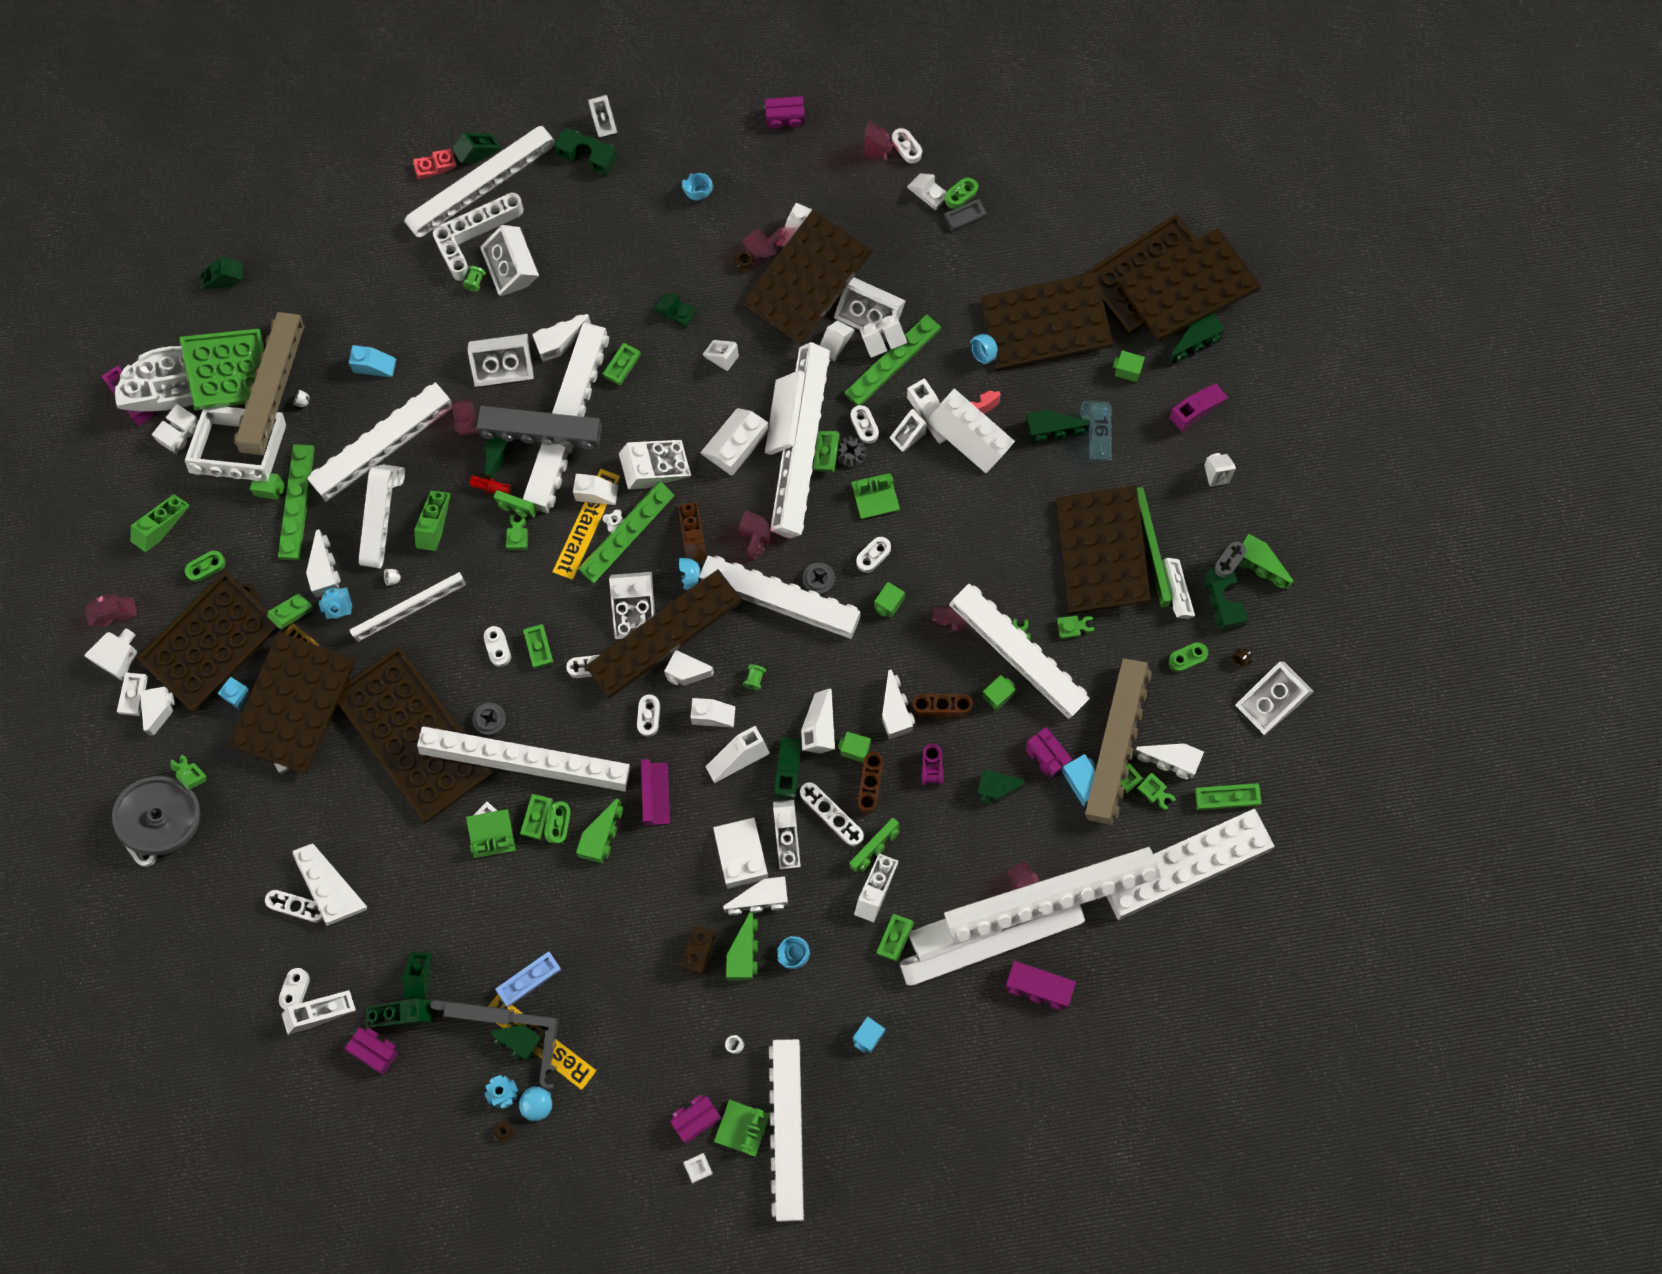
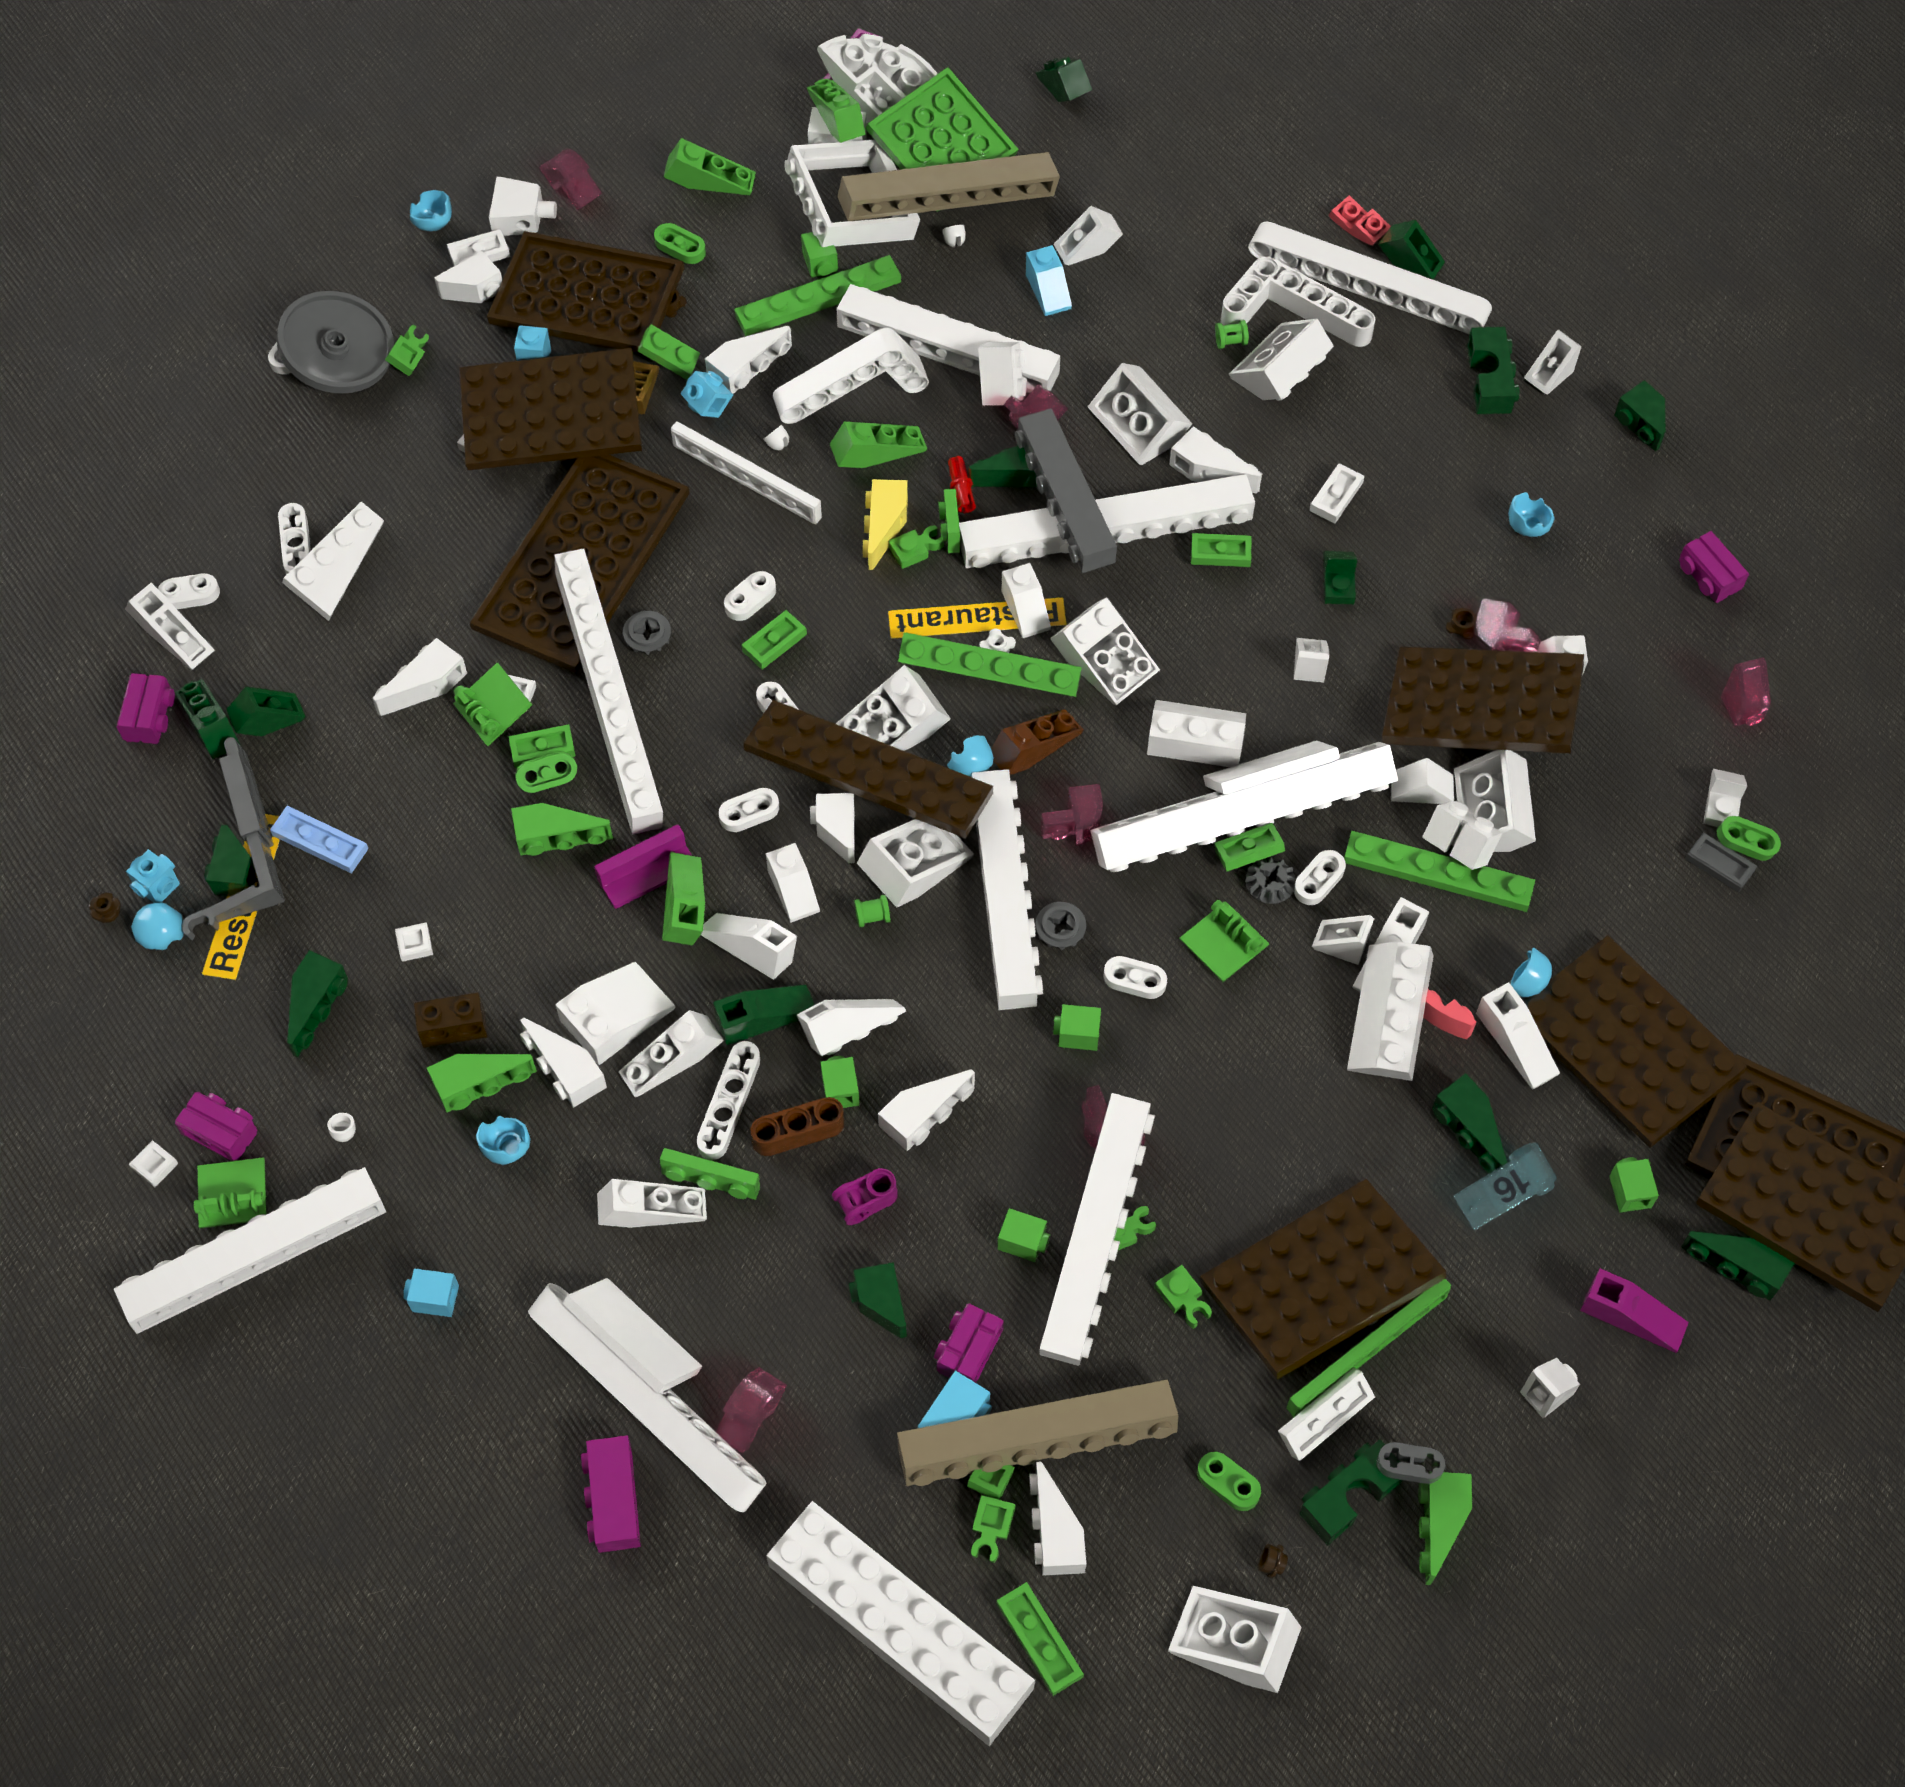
camera: 60 degrees right, 10 degrees down
(82, 709) = (432, 211): none -> medium azure hair
(168, 419) = (838, 110): none -> bright green slope
(352, 322) = (1088, 236): none -> white slope
(430, 422) = (1001, 372): none -> white brick
(448, 866) = (424, 678): none -> white slope
(483, 536) = (886, 518): none -> light yellow slope
(620, 280) = (1336, 493): none -> white plate
(629, 951) = (414, 942): none -> white tile
(633, 1025) = (312, 993): none -> dark green slope
(665, 88) = (1643, 413): none -> dark green slope
(691, 778) = (684, 900): none -> bright green slope
(734, 639) = (912, 859): none -> white slope
(895, 937) = (589, 1263): bright green plate -> none
(908, 146) = (1770, 739): white plate -> none
(933, 711) = (960, 1153): reddish brown beam -> none
(1015, 375) = (1517, 1034): none -> white slope
(1052, 895) = (745, 1437): white brick -> none

